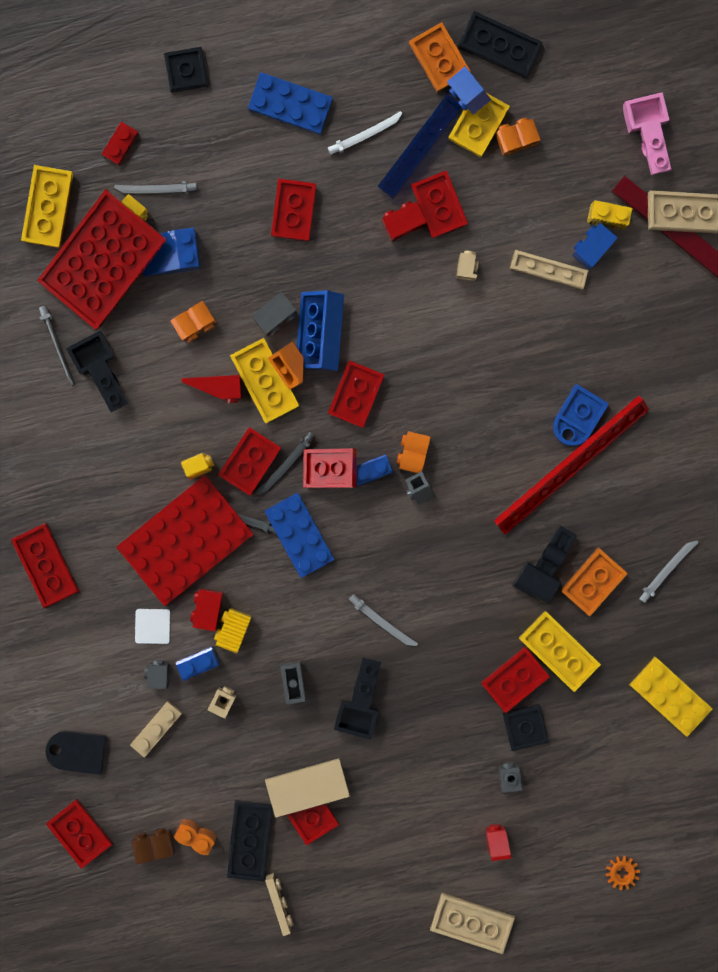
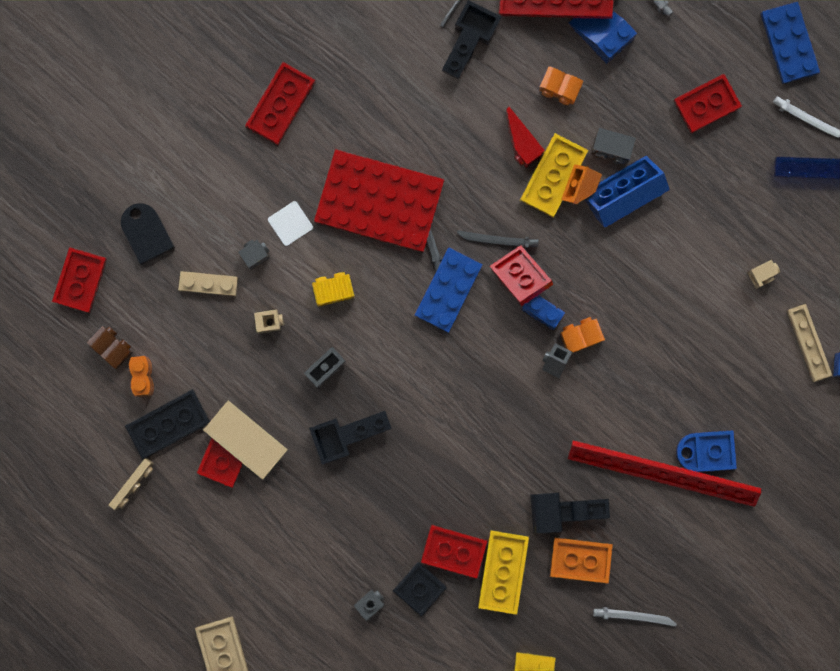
camera: 50 degrees right, 5 degrees down
(197, 465) = (448, 167): yellow brick -> none
(198, 663) = (286, 279): blue brick -> none
(207, 609) = (335, 257): red brick -> none
(249, 461) = (480, 208): red plate -> none
(356, 394) = (595, 256): red plate -> none
(359, 604) = (424, 405): light grey sword -> none
(403, 221) = (762, 197): red brick -> none
(439, 204) = (797, 216): red plate -> none
(497, 842) = (309, 630): red slope -> none

